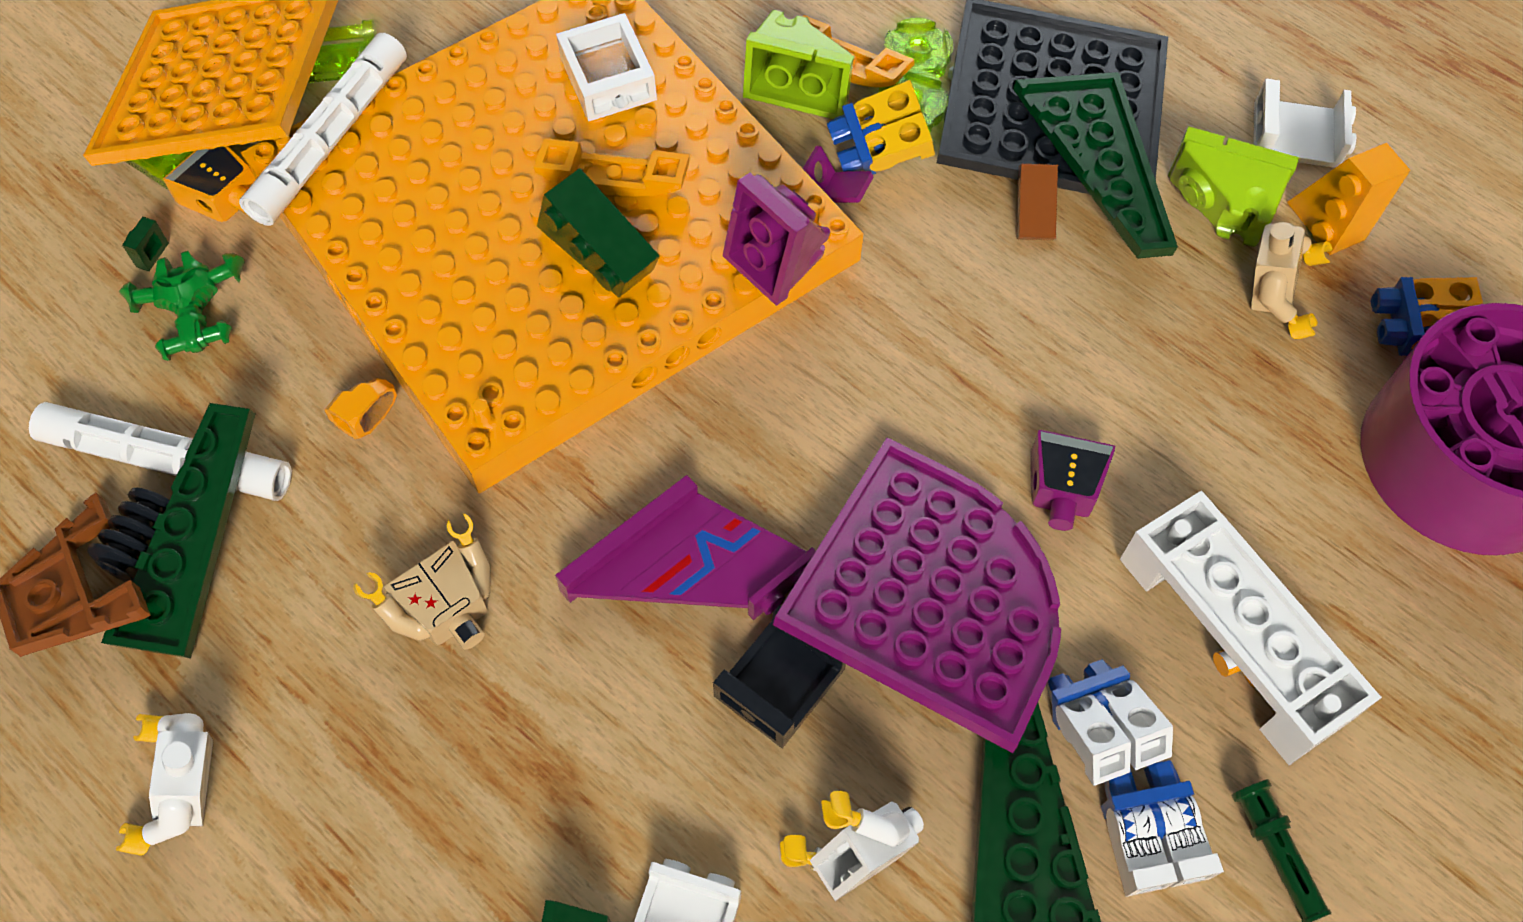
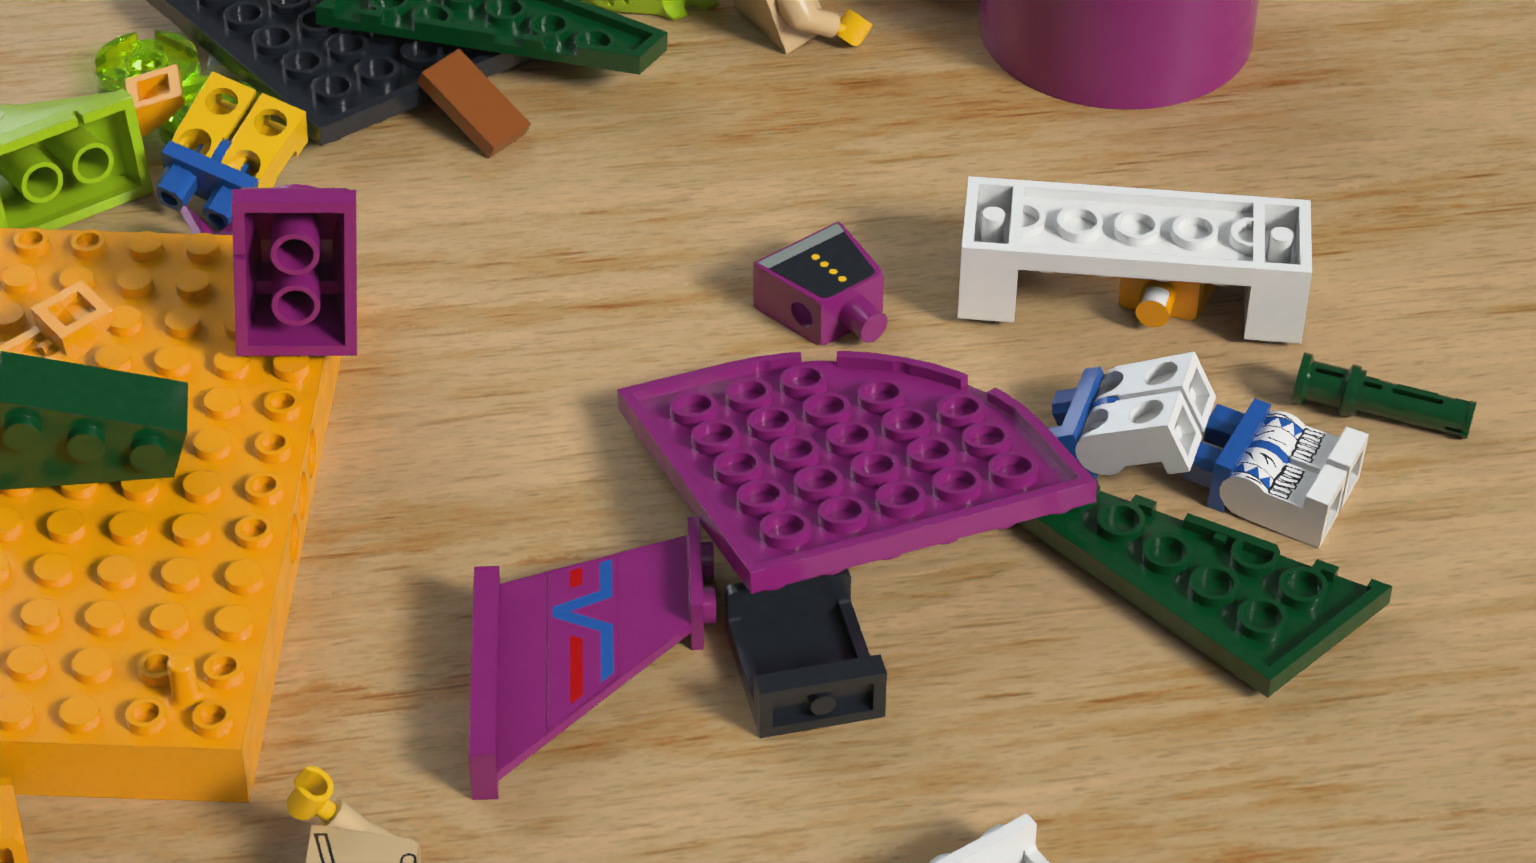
camera: 50 degrees left, 20 degrees down
(860, 849) = (1081, 688): white torso -> none

